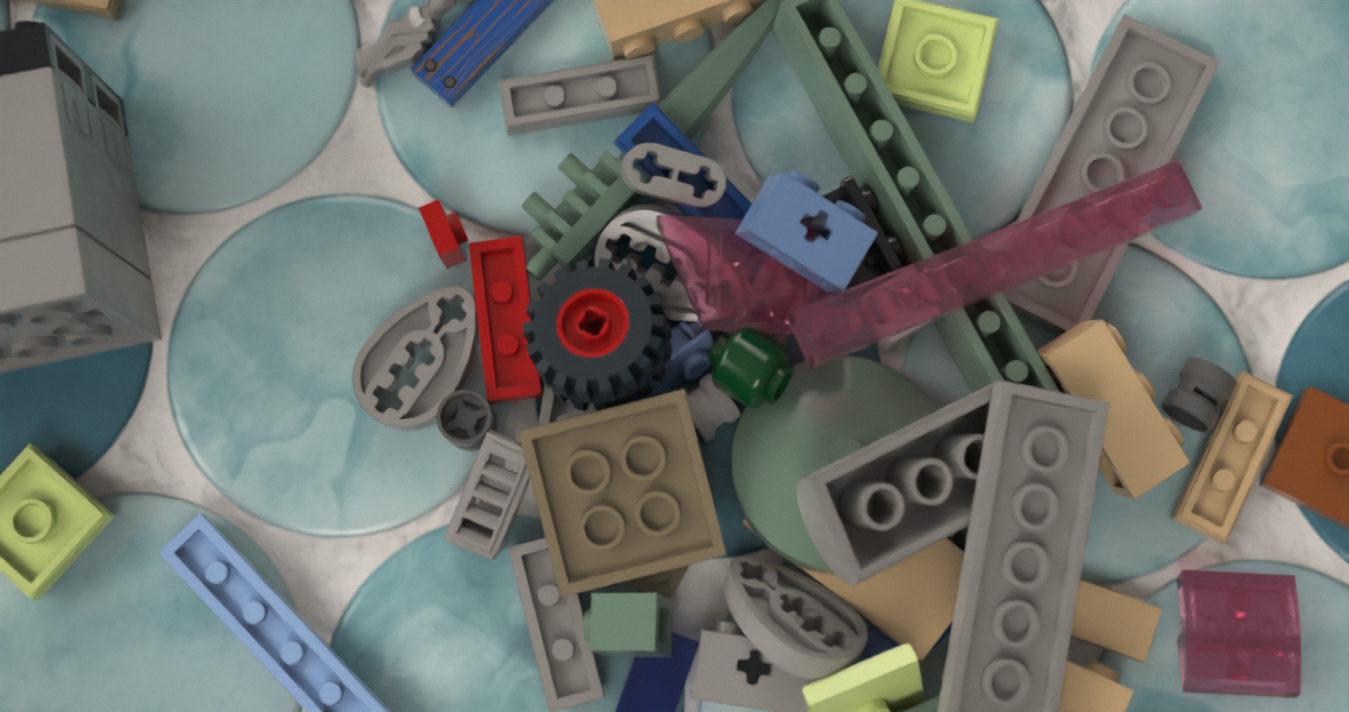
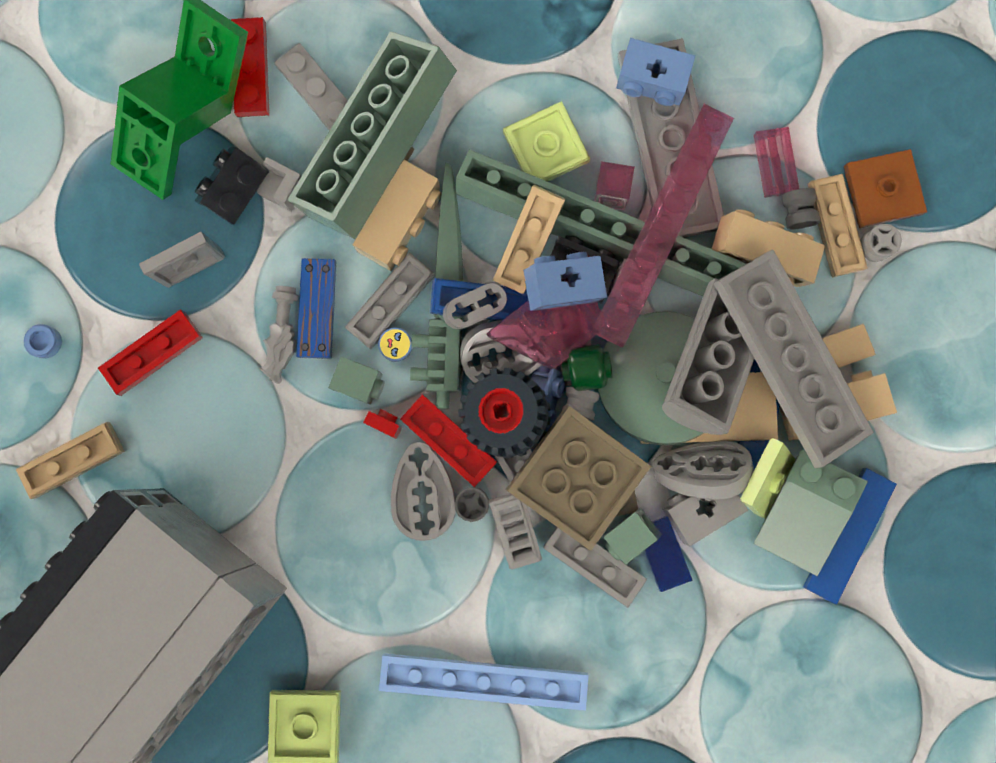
camera: 40 degrees left, 5 degrees up
(456, 155) = (357, 381): none -> sand green brick
(541, 151) = (395, 344): none -> light yellow tile
(813, 141) = (528, 237): none -> tan plate
(977, 171) = (613, 185): none -> clear pink brick
(1138, 45) = (670, 65): none -> medium blue brick
(1196, 348) = (780, 189): none -> clear pink tile
(1239, 634) = (906, 306): clear pink slope -> none
(1282, 518) = (887, 237): none -> light grey wheel

